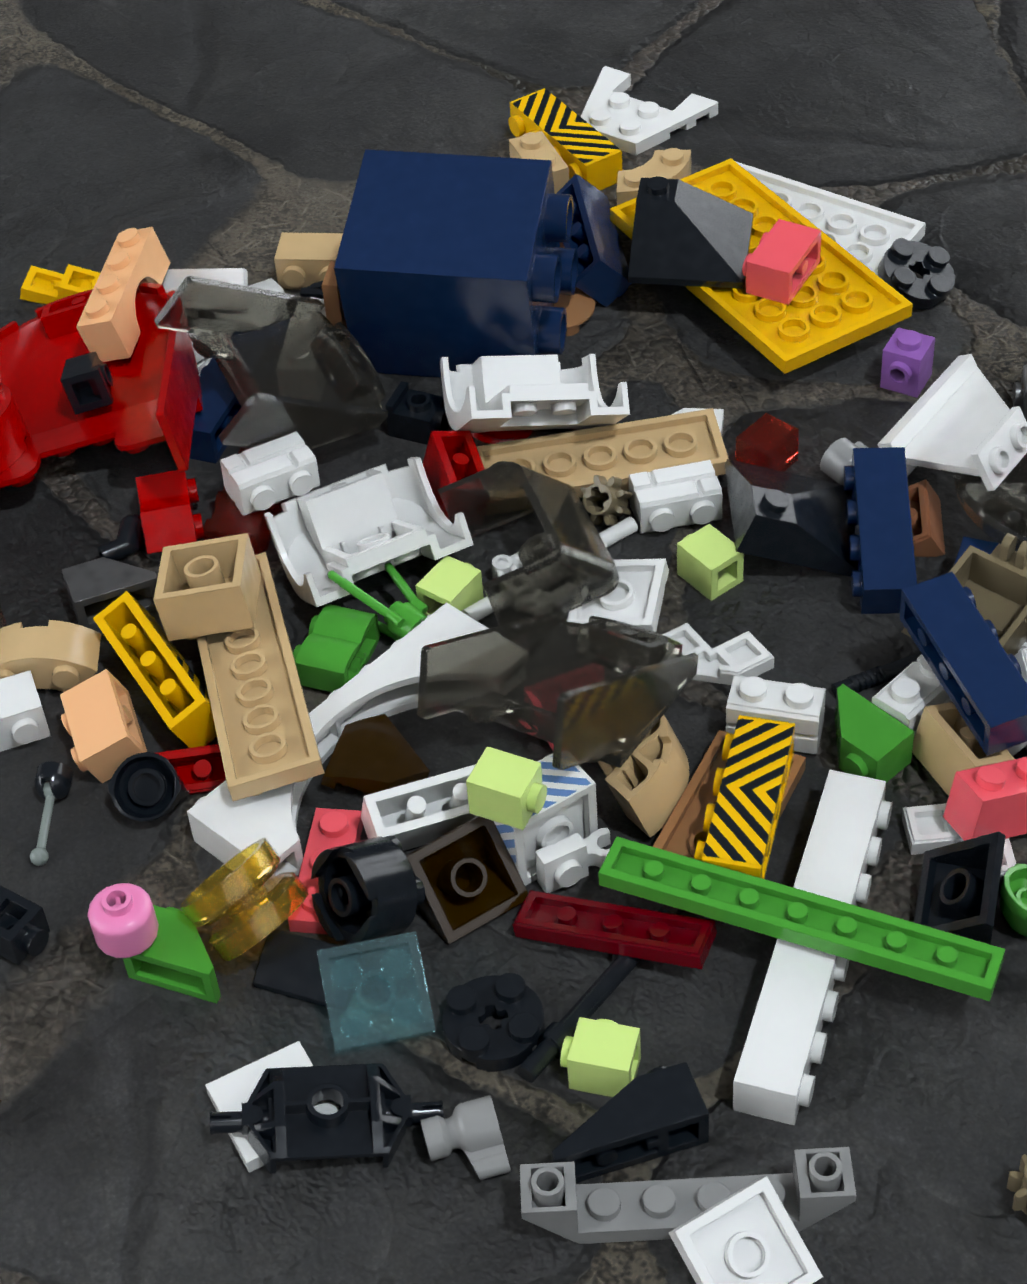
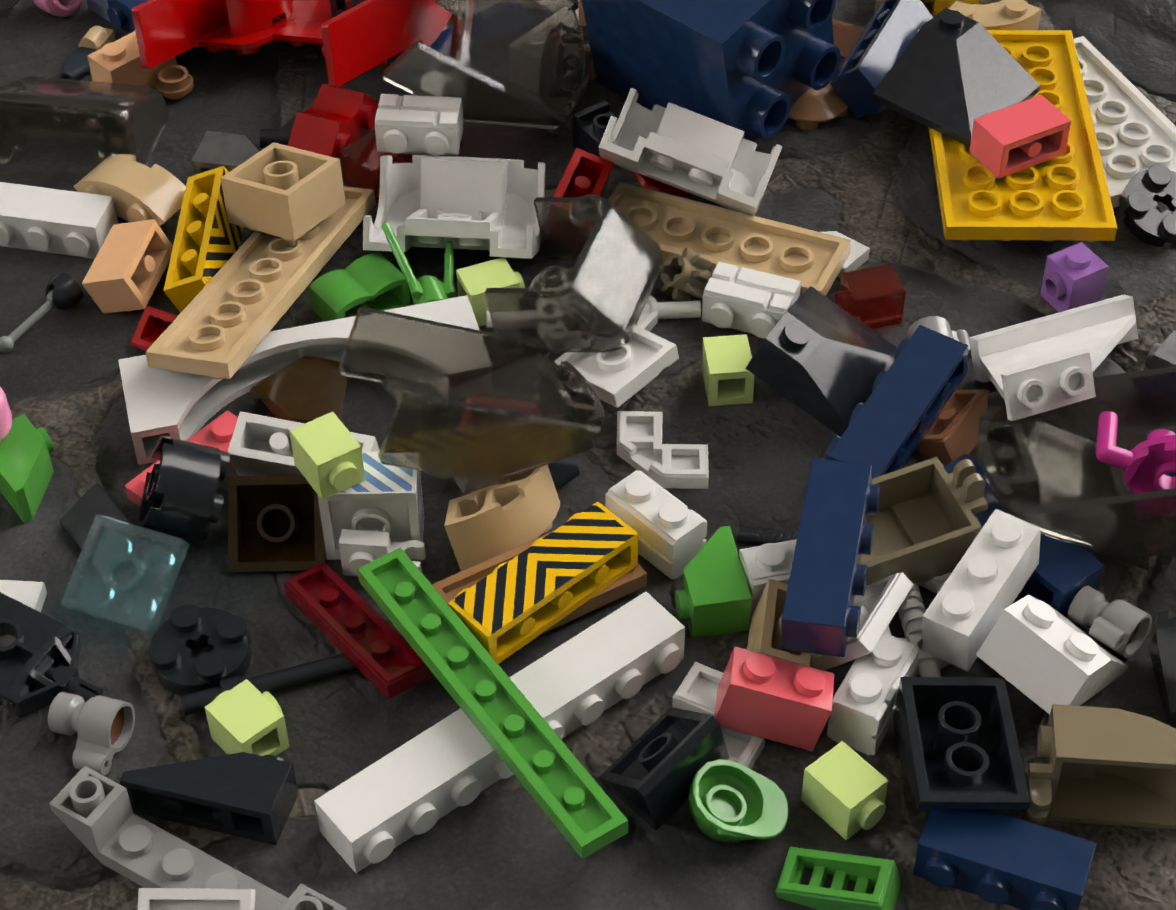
camera: 30 degrees right, 0 degrees up
(146, 787) = (116, 329): black hat -> none
(244, 900) = (87, 452): clear yellow wheel -> none

